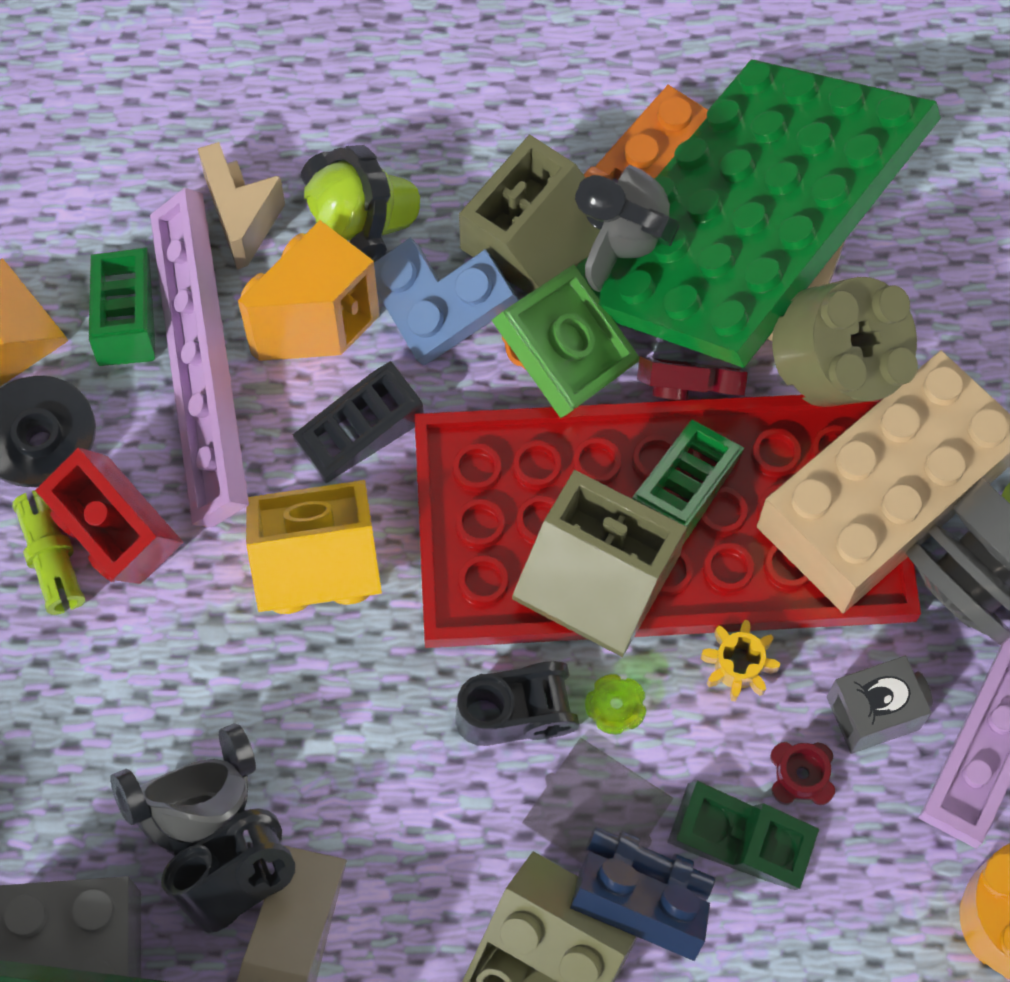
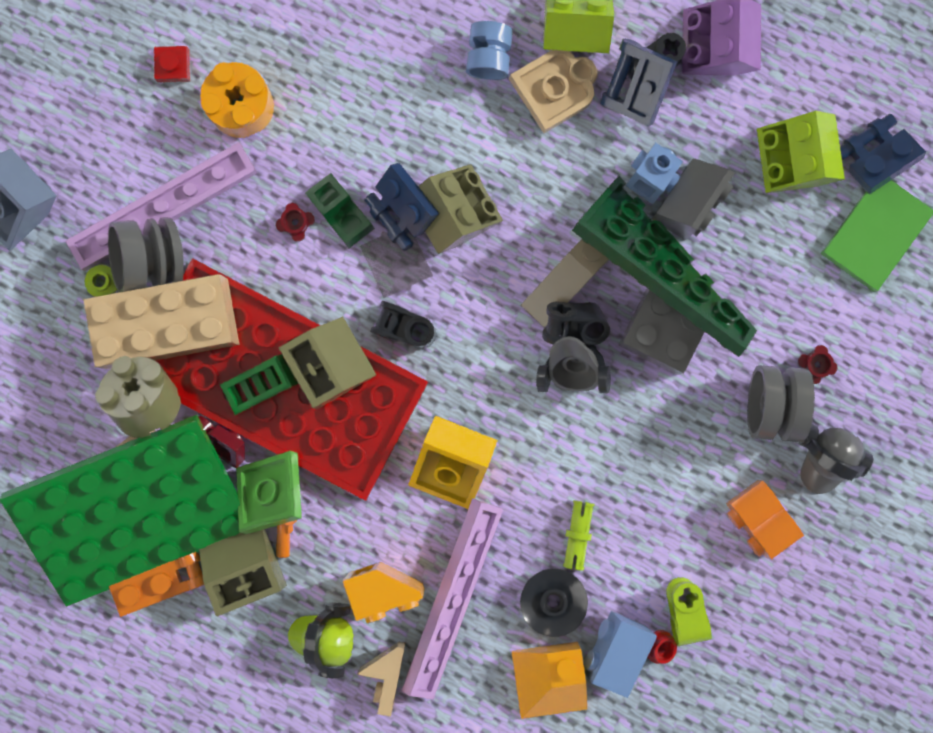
camera: 150 degrees left, 20 degrees up
(108, 517) = (542, 530): red brick -> none
(123, 339) = (485, 628): green slope -> none
(365, 393) = (382, 528): black slope -> none
(437, 312) = (323, 554): medium blue plate -> none
(614, 720) = (358, 311): clear neon green plate -> none
(629, 217) = (200, 532): cap -> none
(756, 653) = (289, 276): yellow gear -> none
(880, 703) = (239, 228): dark grey brick -> none

